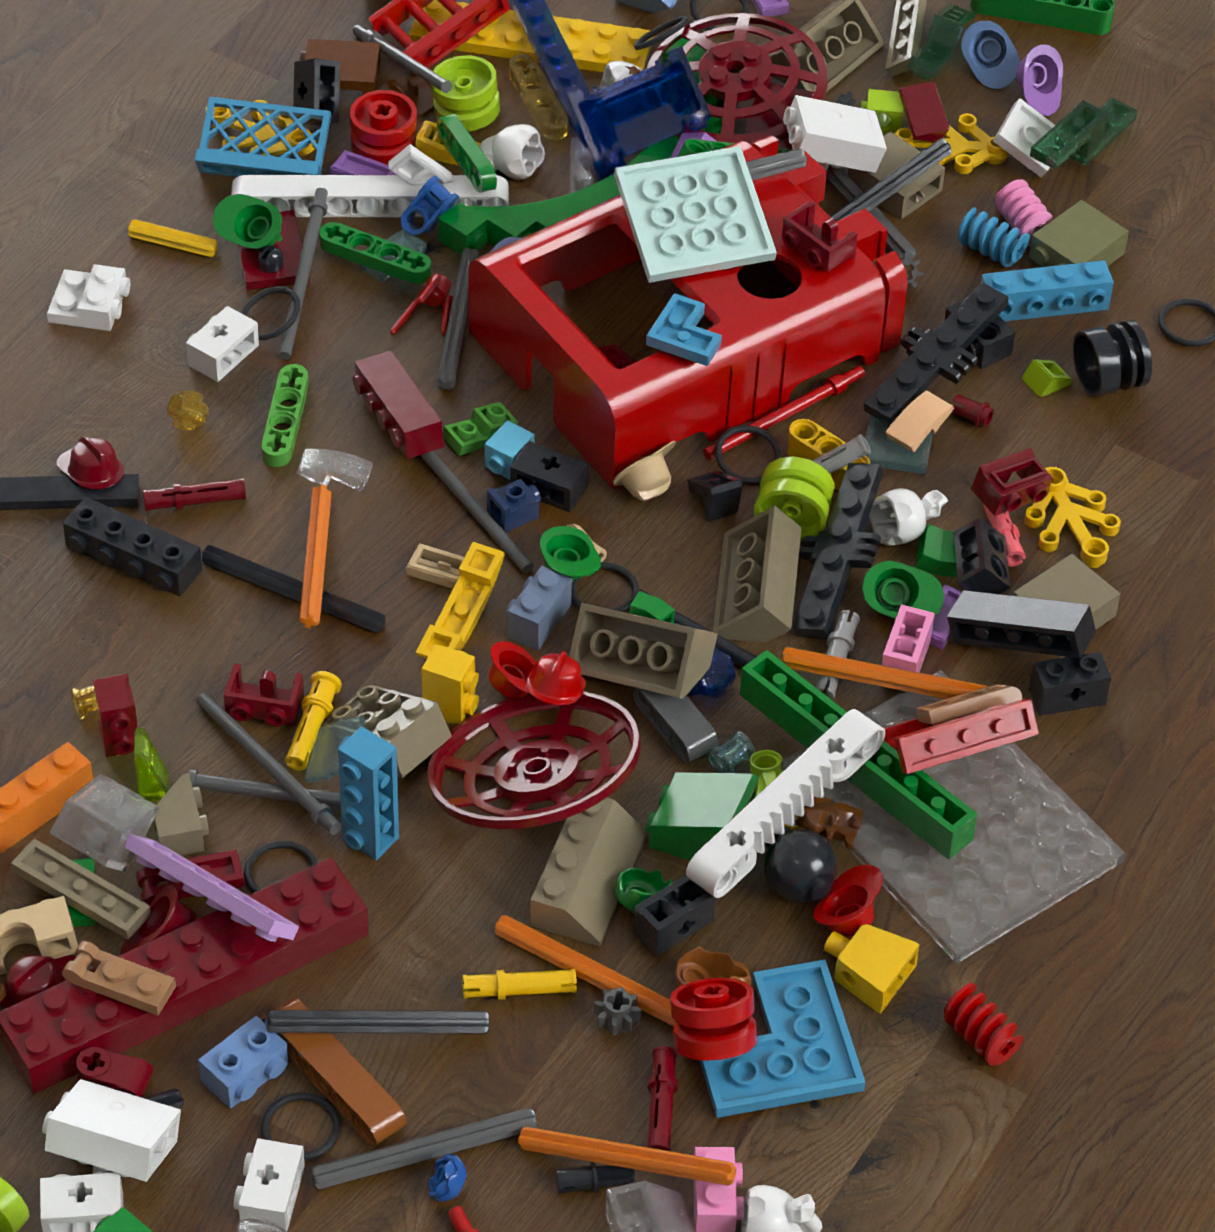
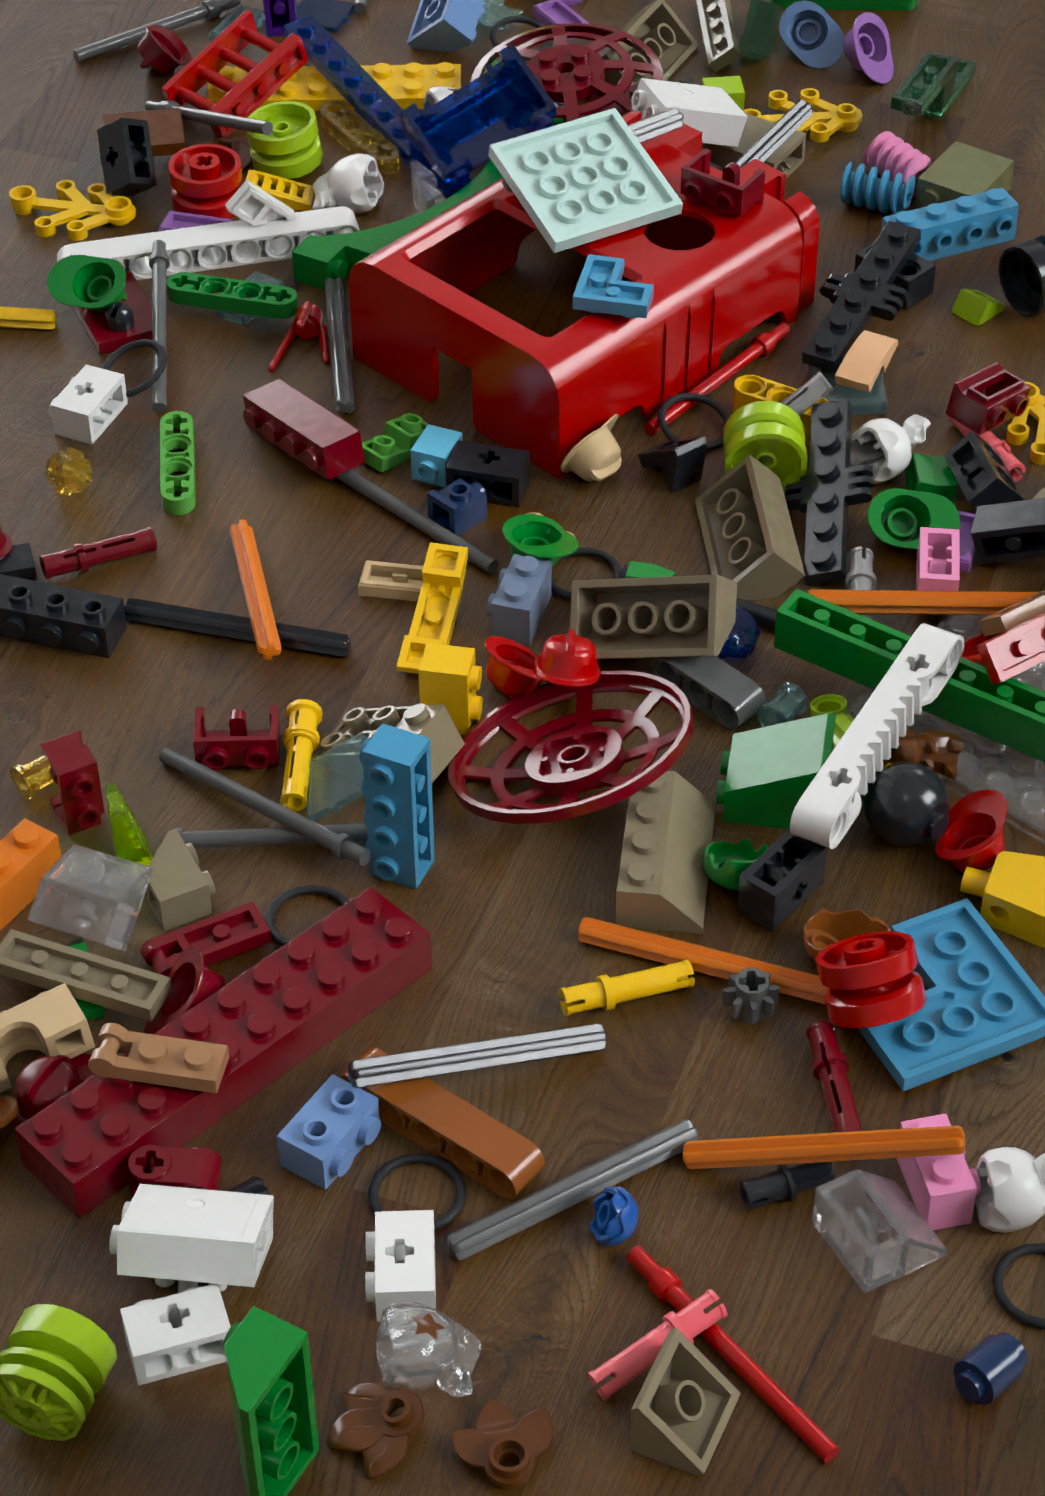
camera: 10 degrees left, 5 degrees down
(219, 893) = (254, 945): lavender plate -> none
(237, 163) = (50, 238): dark azure fence -> none
(324, 464) = (237, 500): clear slope -> none
(431, 202) = (280, 241): blue piece -> none
(466, 153) = (305, 188): green beam -> none
(680, 21) = (473, 57): black piece -> none
(924, 111) = (766, 88): dark red slope -> none
(973, 411) = (916, 346): dark red pin -> none
(1020, 132) = (872, 95): white plate -> none

